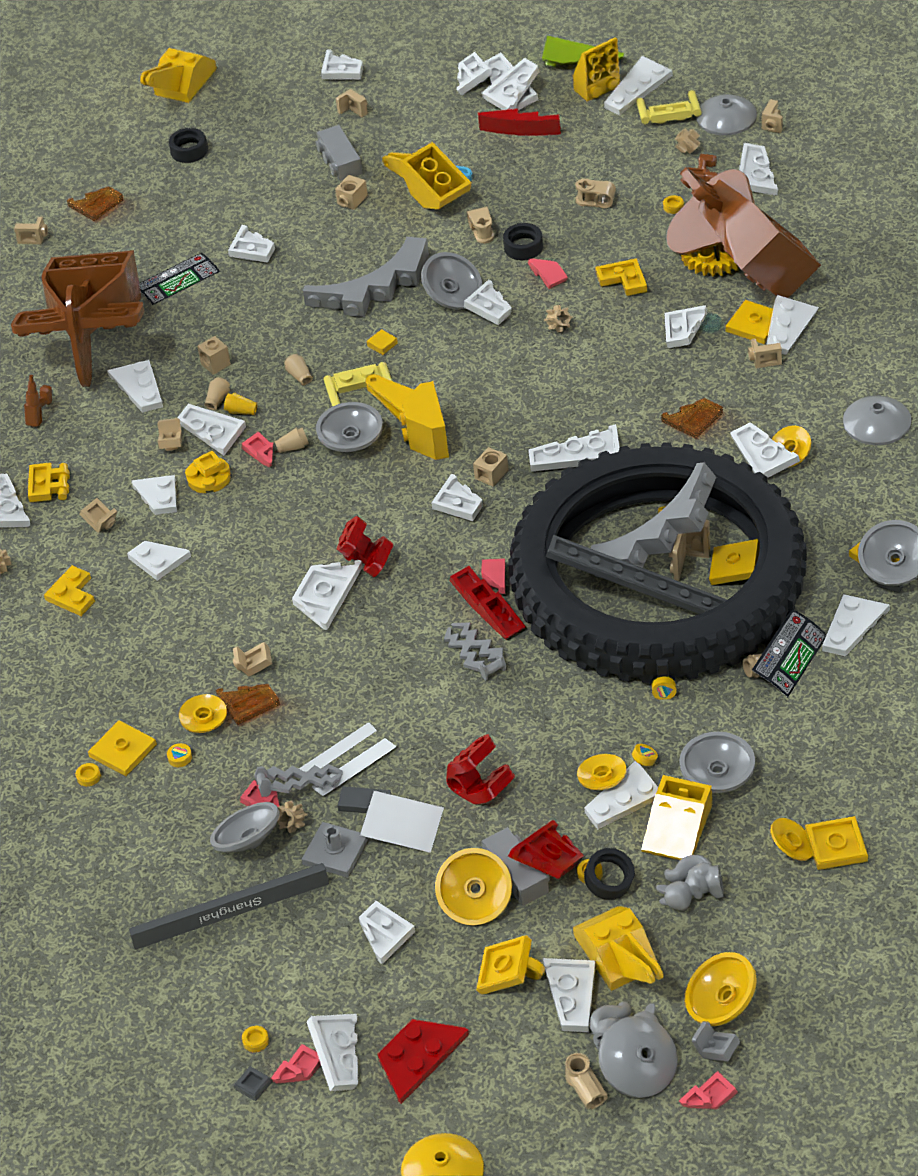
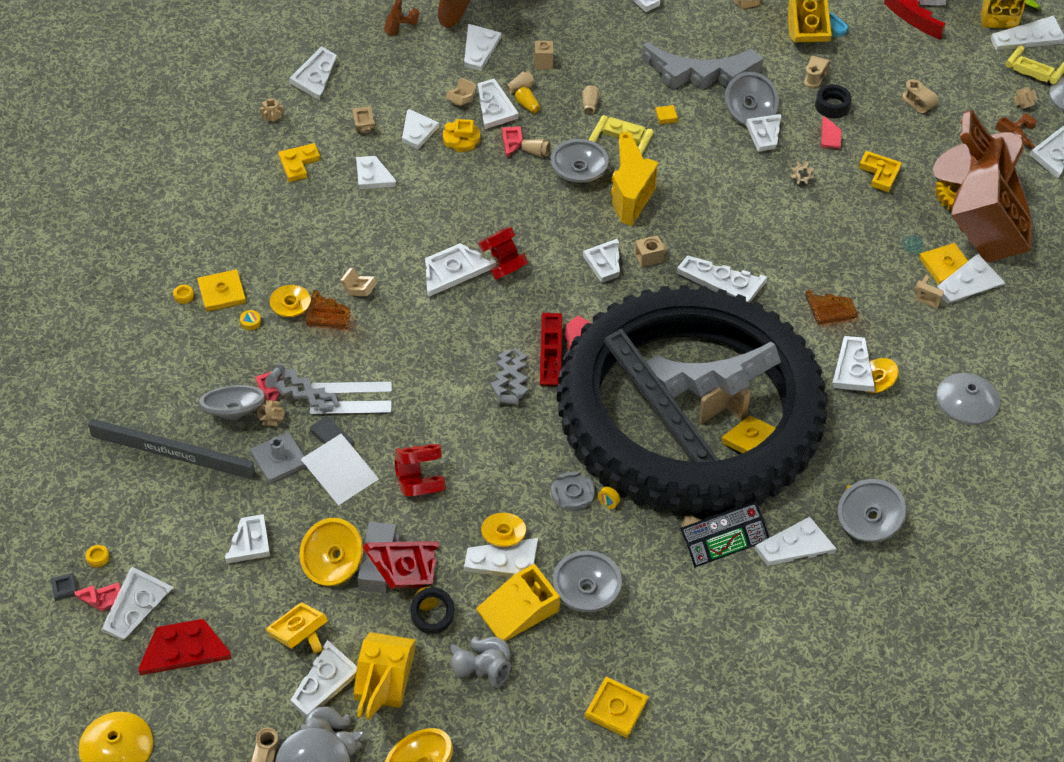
camera: 30 degrees right, 5 degrees up
(41, 485) = (351, 76): yellow plate -> none
(626, 712) = (577, 496): none -> light grey tile
(644, 755) = (546, 538): yellow tile -> none
(683, 325) = (888, 233): white wing -> none
(791, 839) = (591, 675): yellow dish -> none

